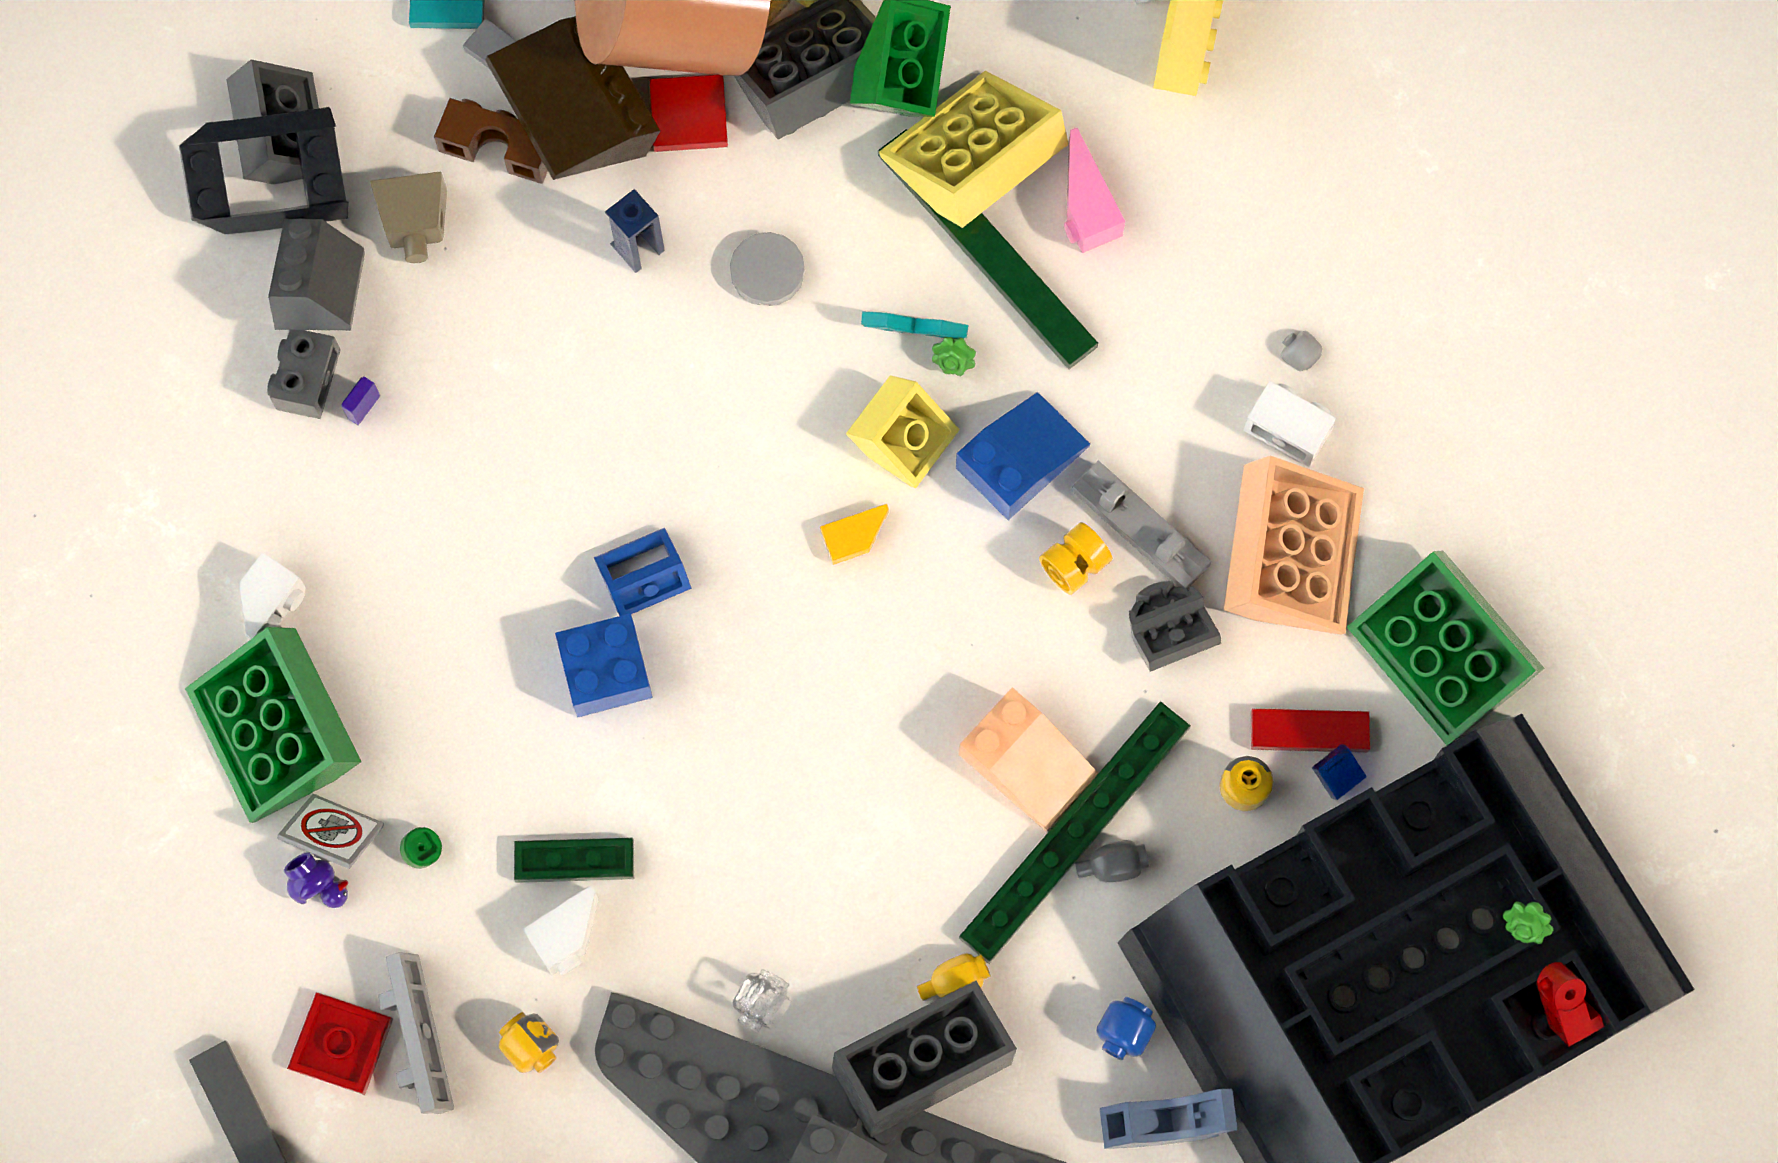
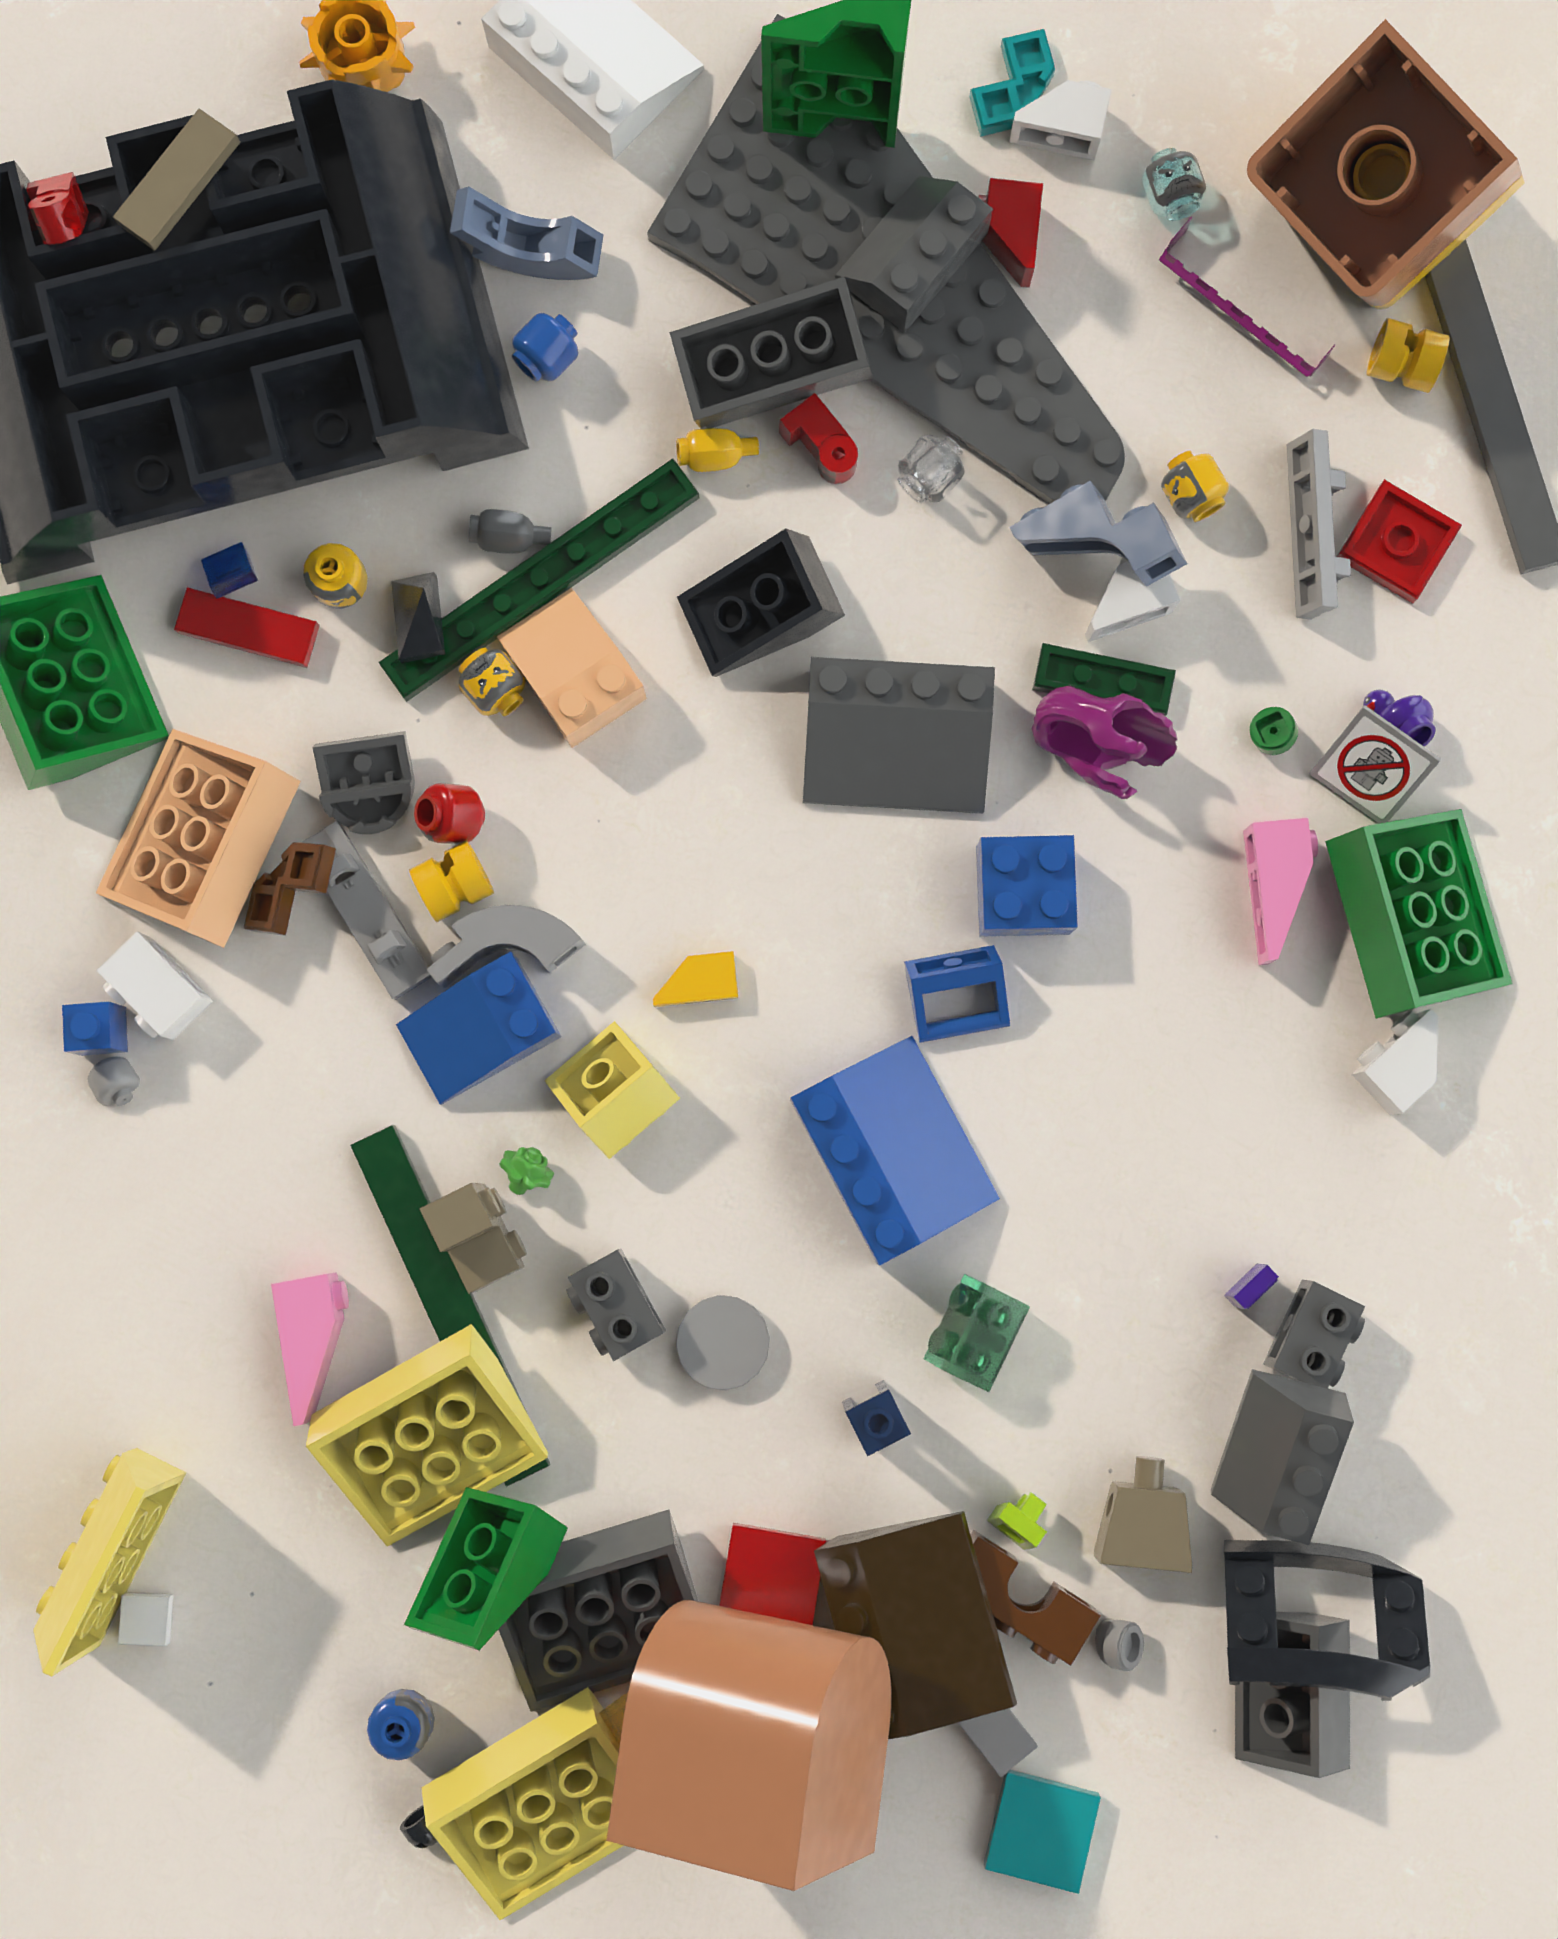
camera: 165 degrees left, 10 degrees up
(394, 724) = (1278, 868): none -> bright pink slope
(414, 126) = (1119, 1644): none -> light grey tile
(507, 193) = (1020, 1520): none -> lime tile
(570, 315) = (976, 1332): none -> clear green brick
(576, 804) = (1102, 735): none -> magenta hair
(614, 975) = (1083, 525): none -> sand blue arch
(666, 437) = (894, 1150): none -> slope
(738, 768) = (898, 735): none -> dark grey slope
(856, 270) = (622, 1301): none -> dark grey brick
(859, 1007) = (822, 437): none -> red leg
(880, 849) = (761, 603): none -> black slope
(905, 324) = (582, 1225): teal tile -> none
(981, 295) = (474, 1235): none -> dark tan brick
(1018, 534) = (504, 929): none -> light grey arch
(1090, 729) = (491, 682): none -> head
(1092, 610) = (449, 813): none -> red head
(1168, 770) = (418, 617): none -> black slope
(1202, 535) = (304, 869): none -> reddish brown tile
(1325, 378) = (94, 1028): none -> blue brick
(1469, 1044) = (176, 179): none -> dark tan tile
(1528, 922) = (66, 285): bright green plant -> none

